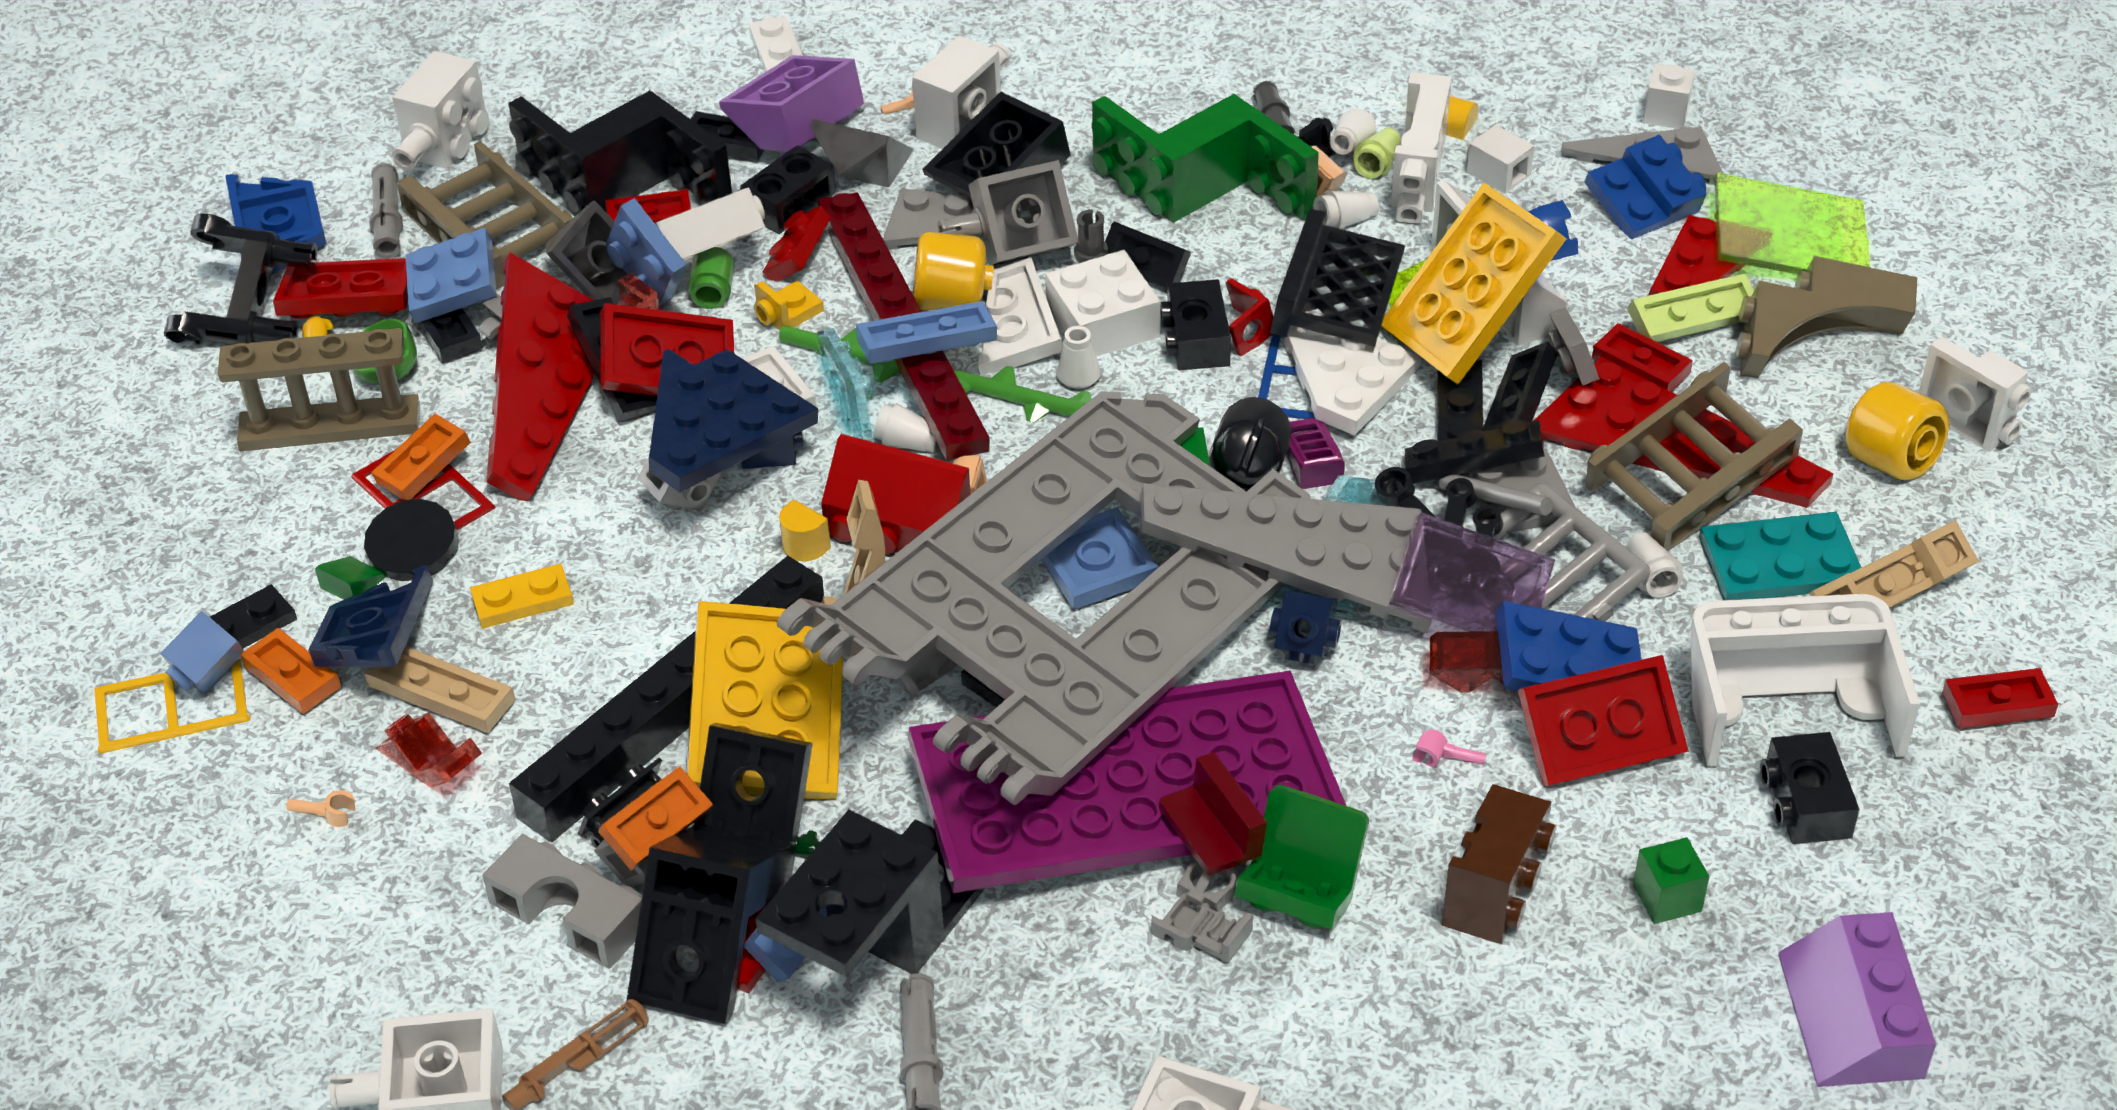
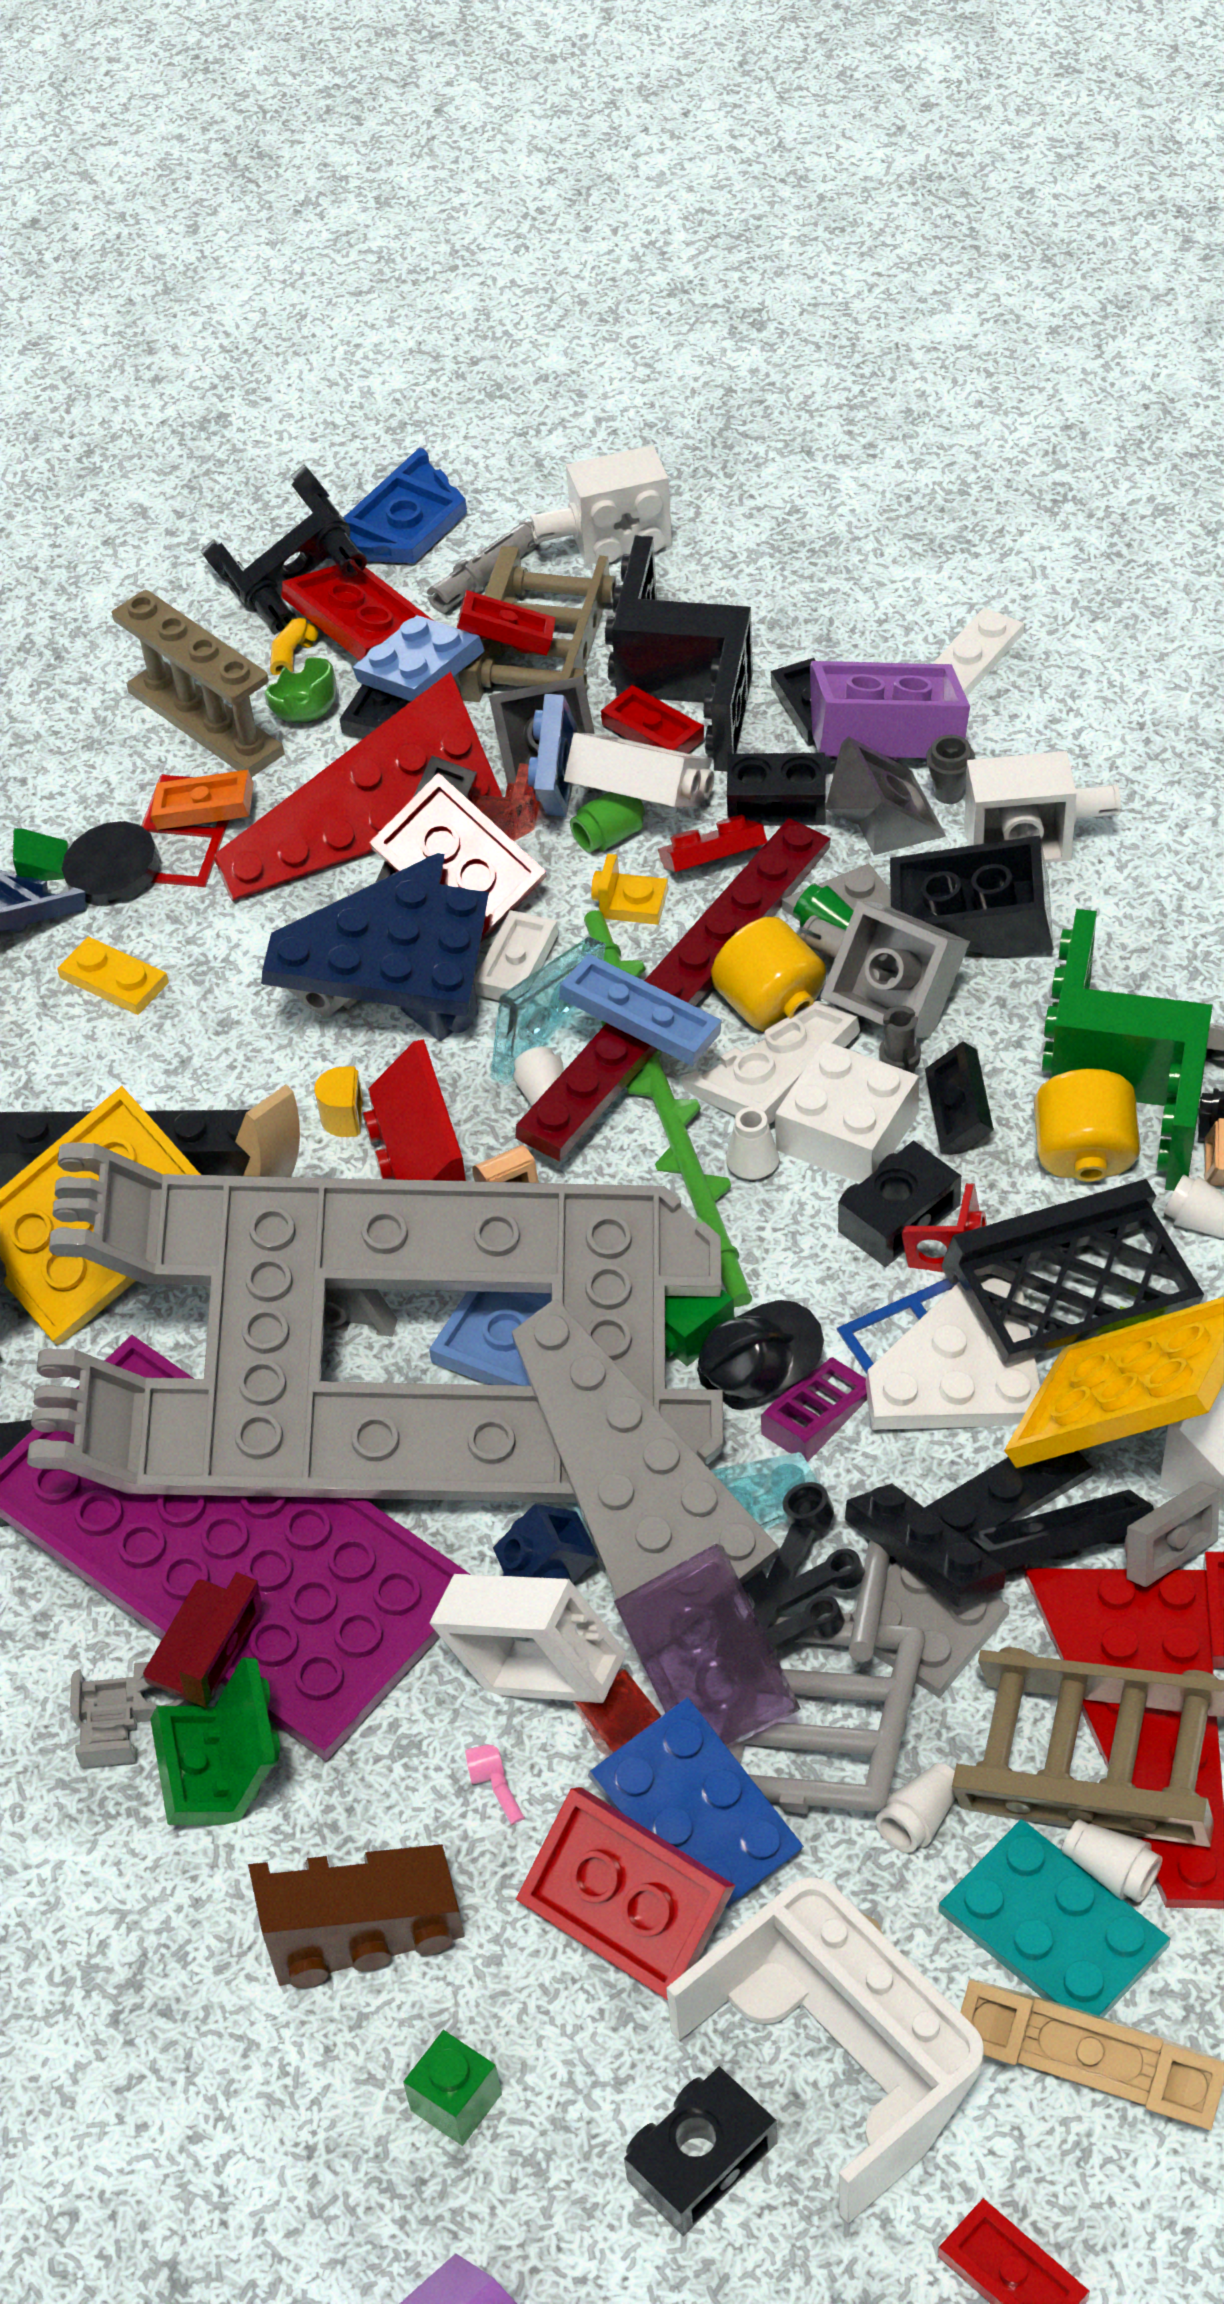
camera: 55 degrees right, 5 degrees up
(485, 212) = (506, 623): none -> red plate
(878, 104) = (948, 767): none -> dark grey cone
(926, 216) = (824, 904): none -> green cone
(1235, 212) = (1087, 1124): none -> yellow head
(1370, 635) = (486, 1611): none -> white window
(1772, 498) = (1113, 1859): none -> white cone

